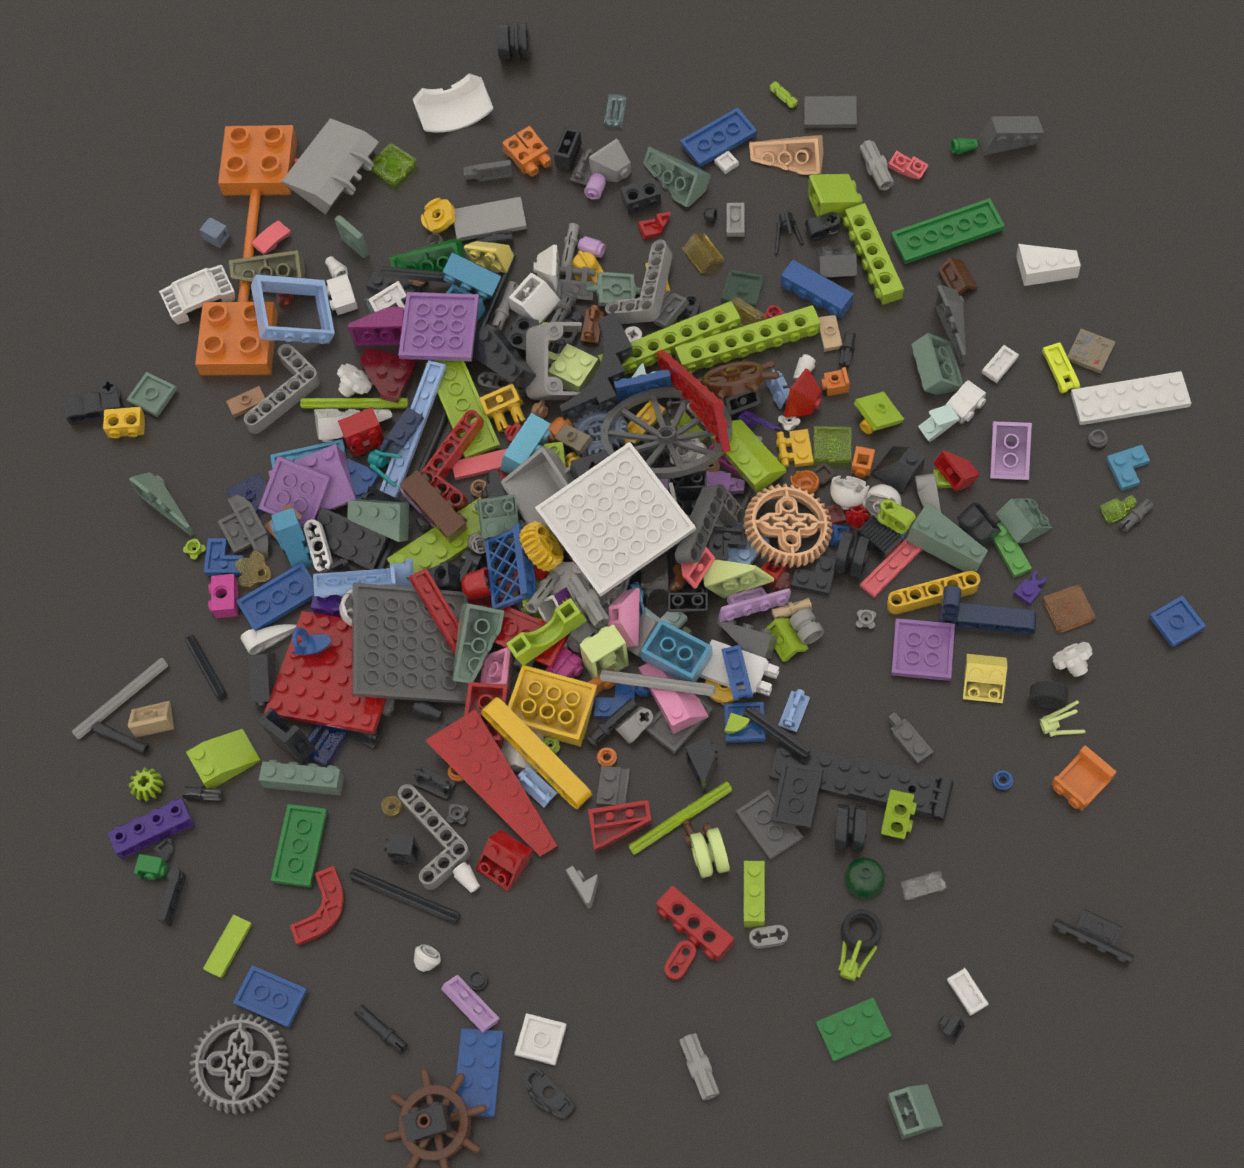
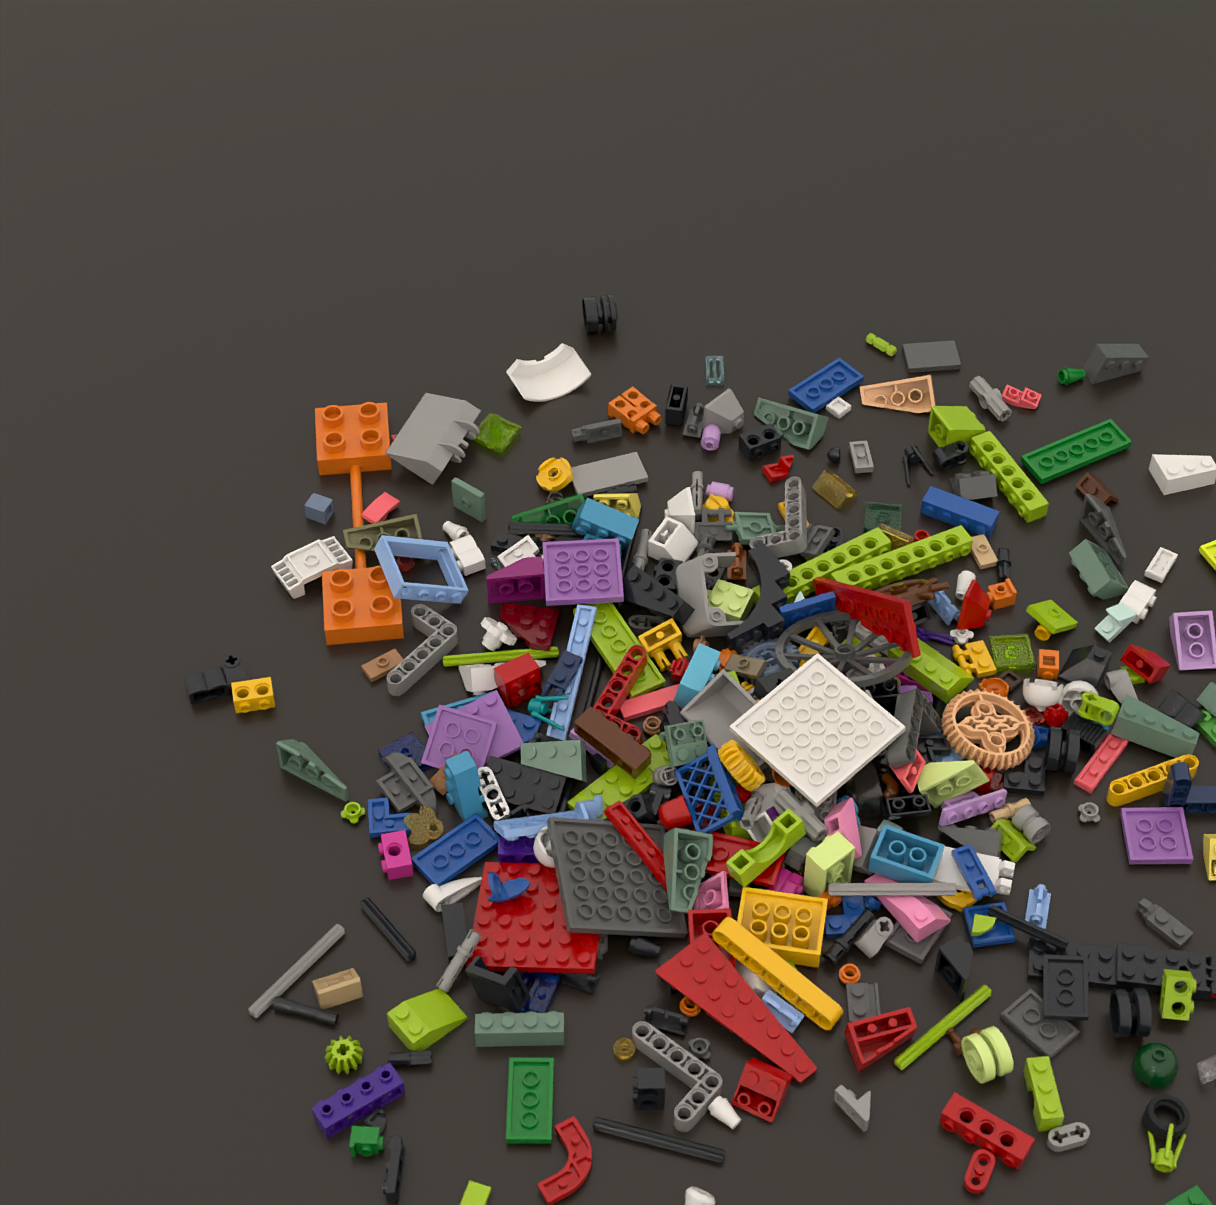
camera: 15 degrees left, 15 degrees down
(152, 394) = (279, 665): sand green plate -> none
(262, 701) = (462, 955): none -> light grey pin

